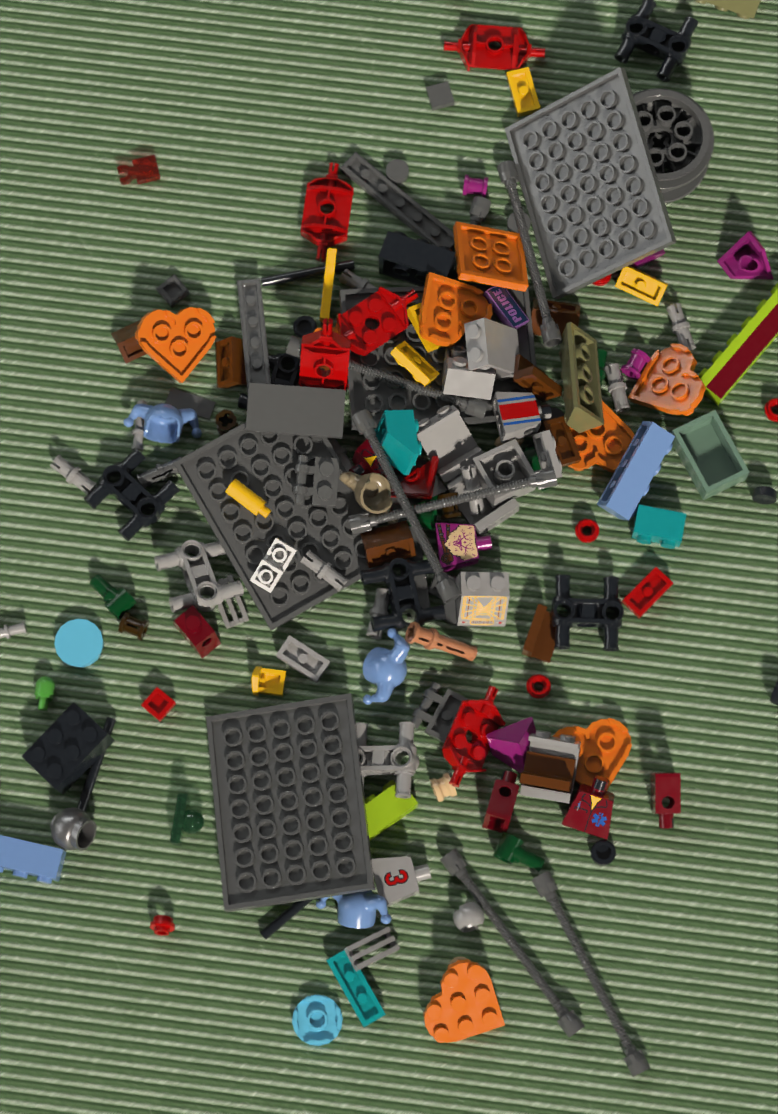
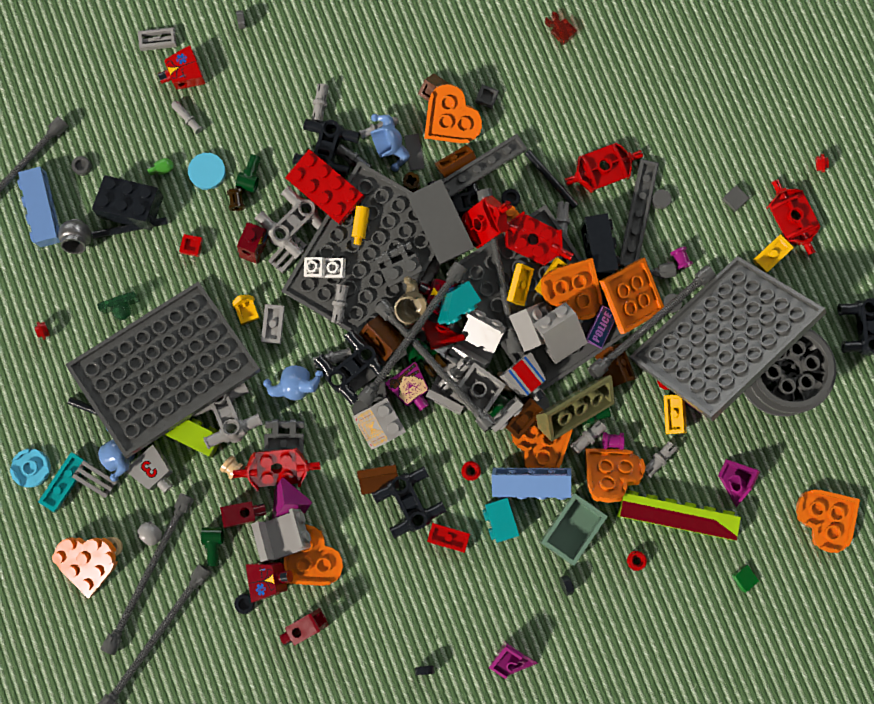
camera: 60 degrees right, 5 degrees up
(181, 516) = (325, 187): none -> red plate
(328, 284) = (548, 196): yellow tile -> none
(432, 639) = (329, 403): nougat pin -> none
(535, 380) = (558, 374): reddish brown panel -> none
(538, 678) = (334, 500): red plate -> none
(548, 771) = (277, 535): reddish brown panel -> none

